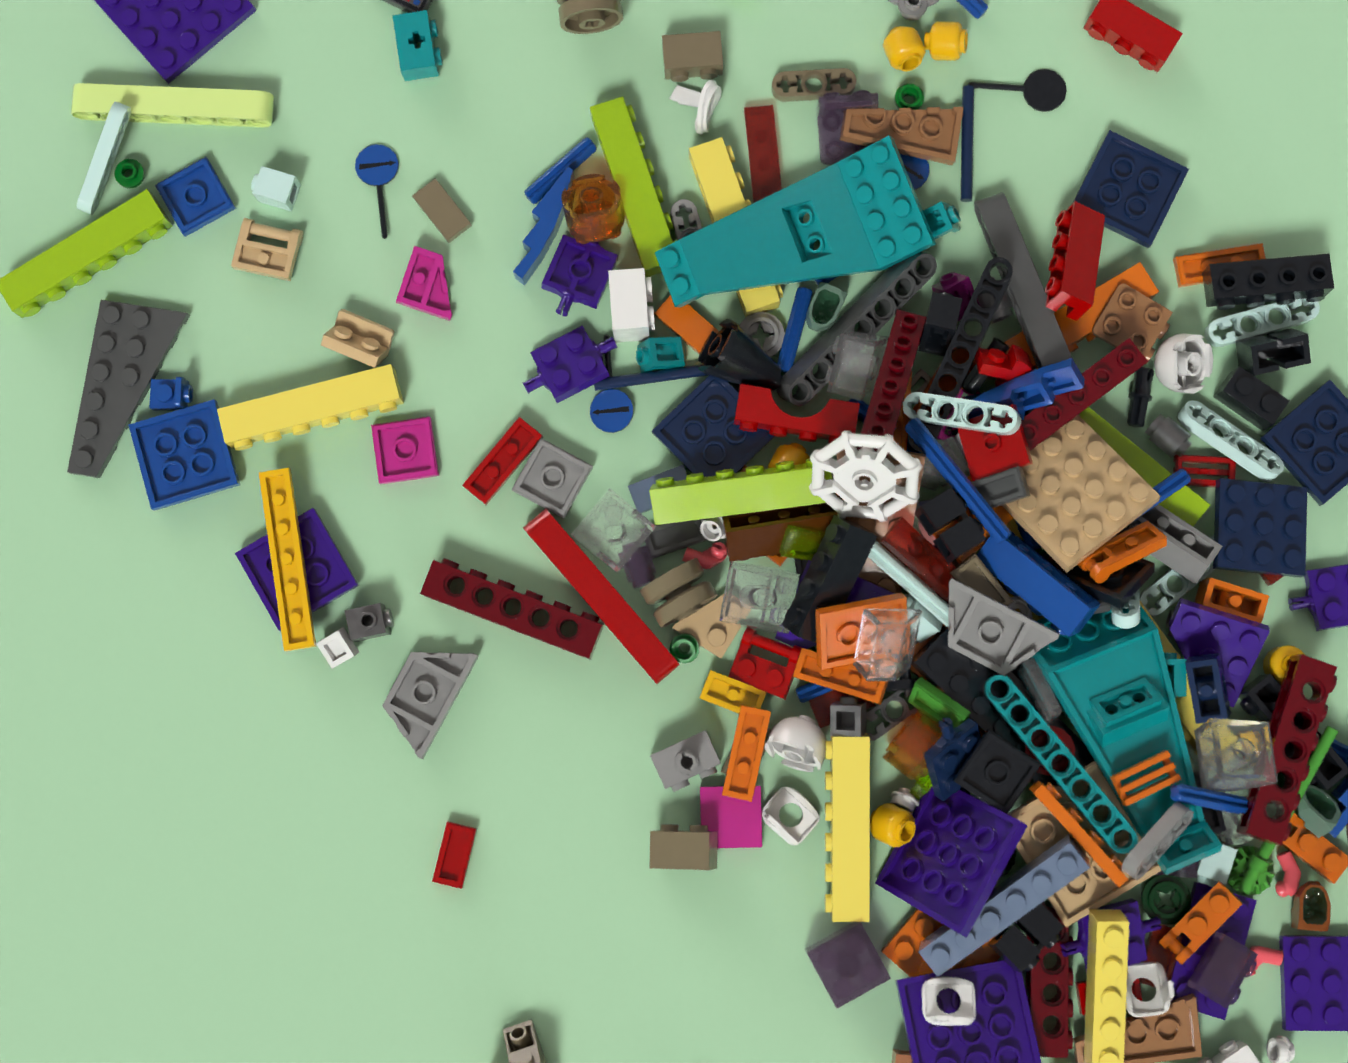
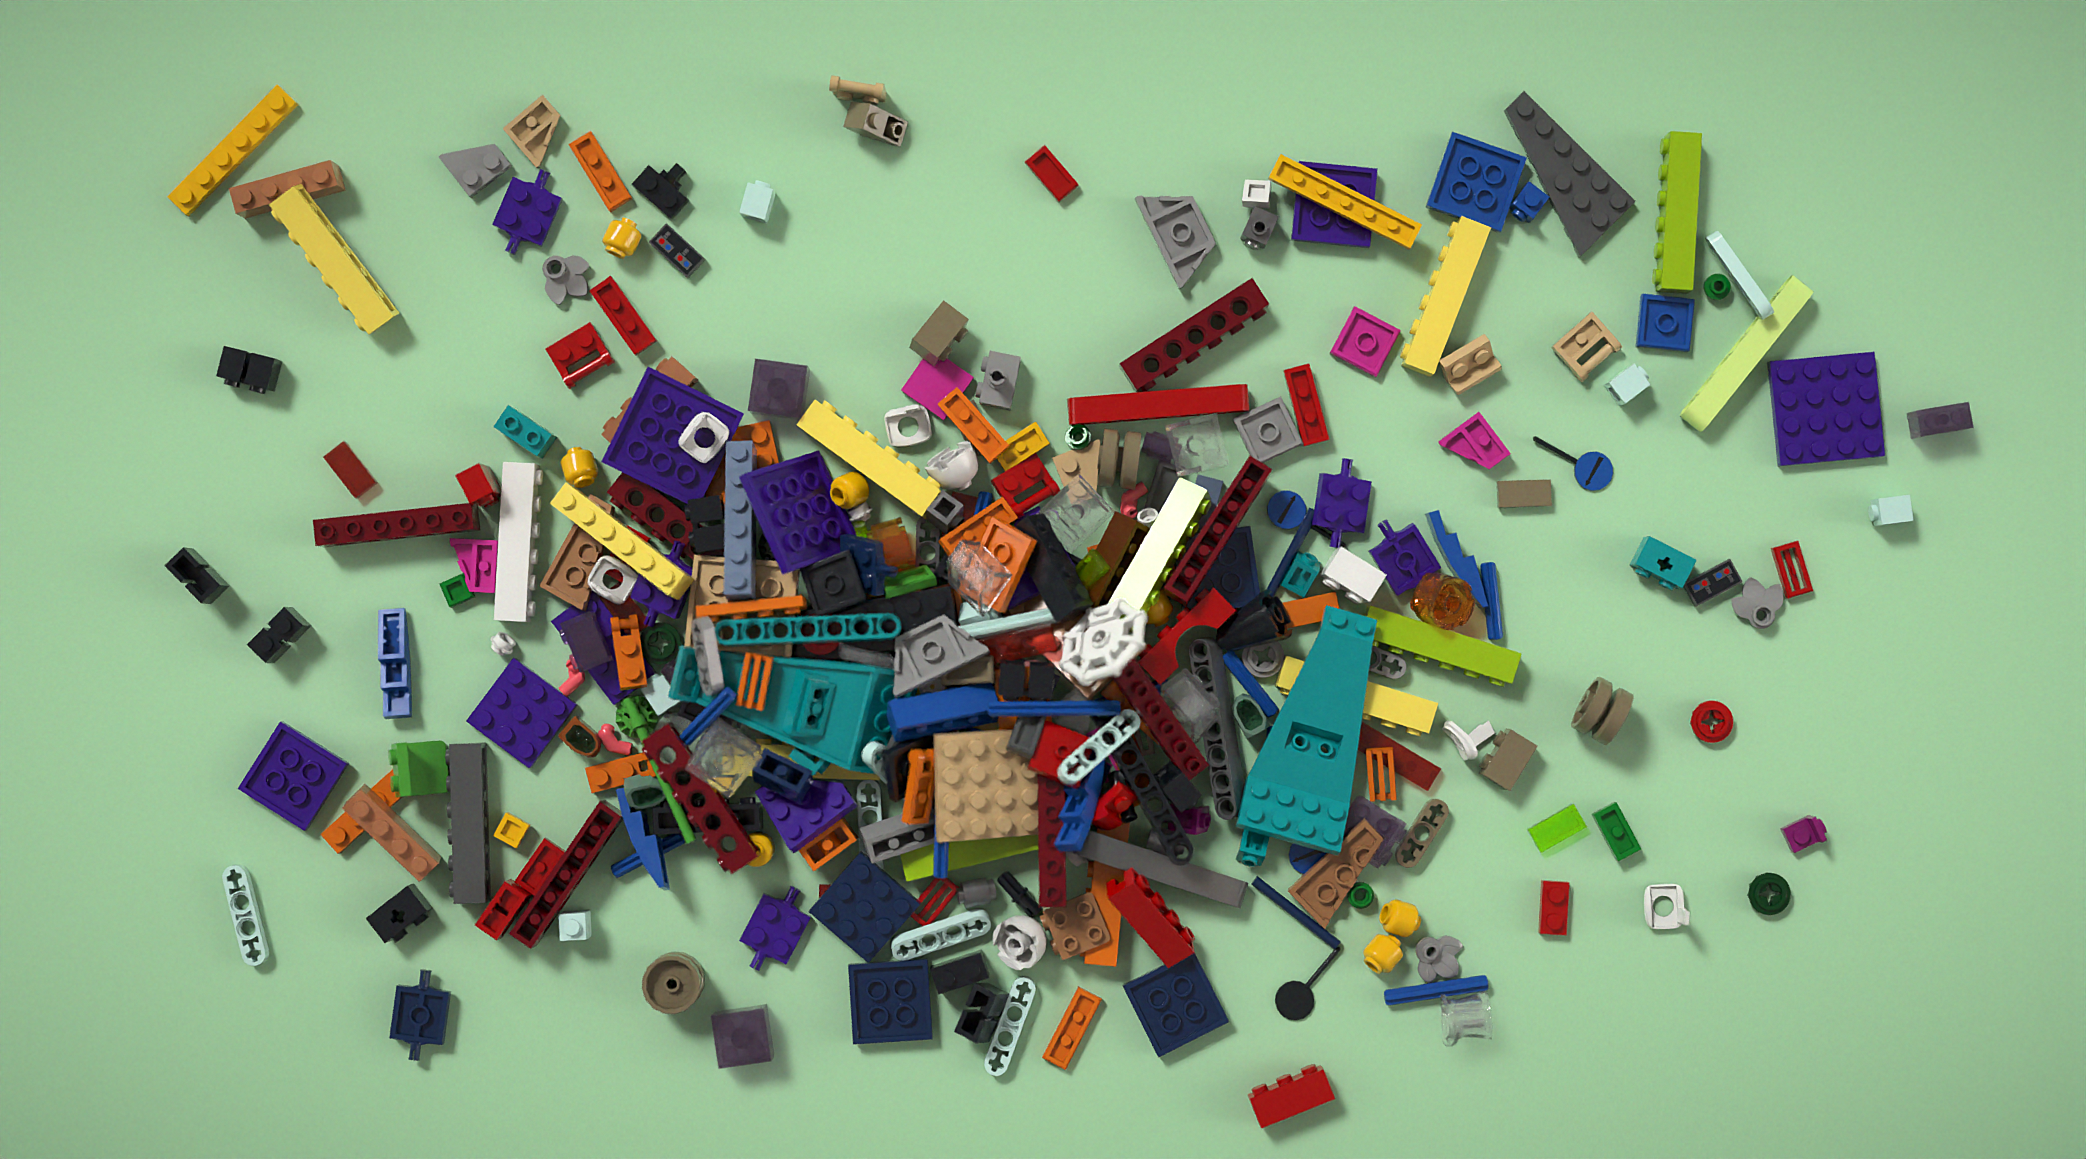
camera: 125 degrees right, 5 degrees up
(679, 453) = (1217, 531): none -> dark red brick
(805, 142) = (1382, 795): none -> orange tile
(1268, 281) = (1035, 1047): black brick -> none

